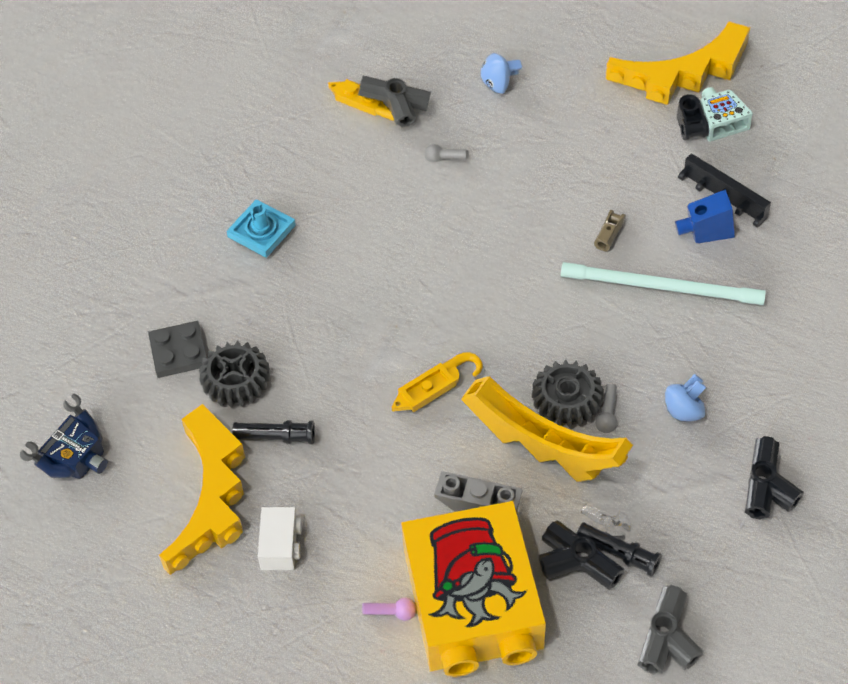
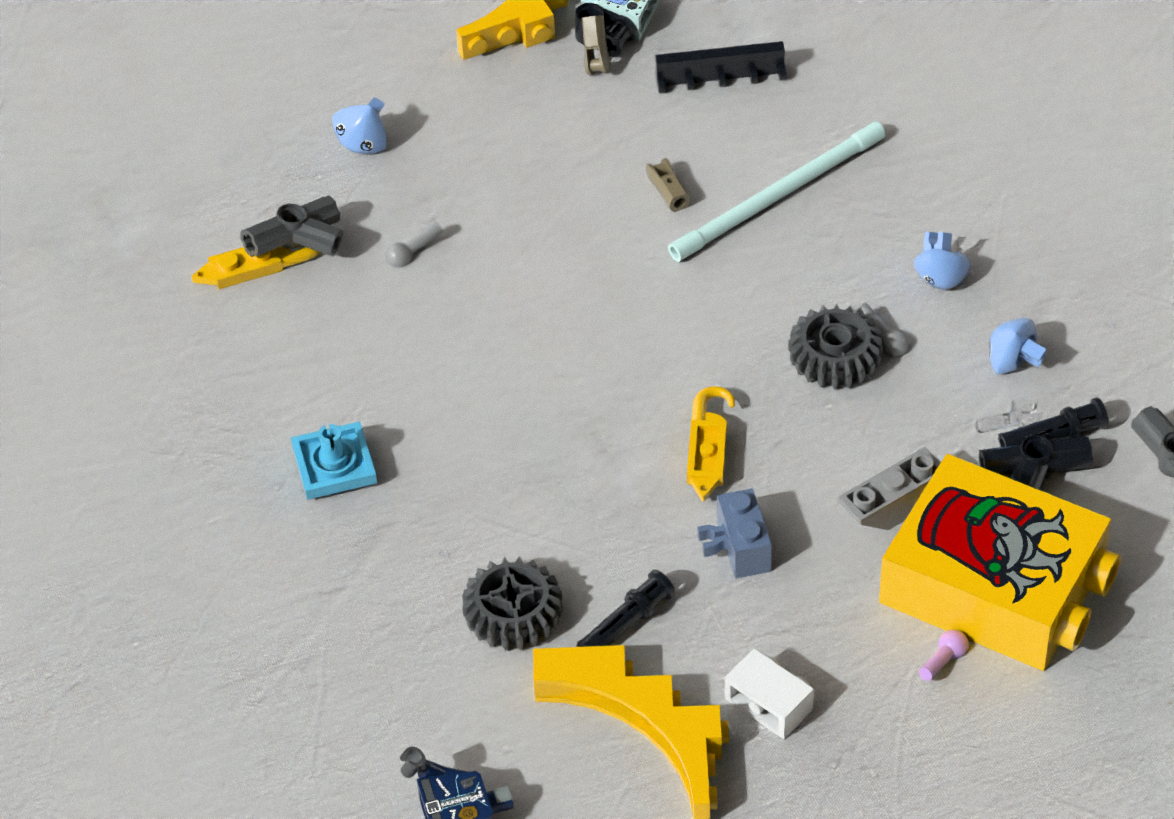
camera: 50 degrees left, 5 degrees down
(177, 348) = (415, 637): dark grey plate -> none
(380, 444) = (740, 533): none -> sand blue brick
(512, 421) = (879, 396): yellow arch -> none
(660, 480) = (1014, 342): none -> light blue piece
(668, 127) = (595, 38): none -> dark tan bar
(708, 219) = (749, 98): blue torso -> none
(774, 488) = (1091, 272): black piece -> none

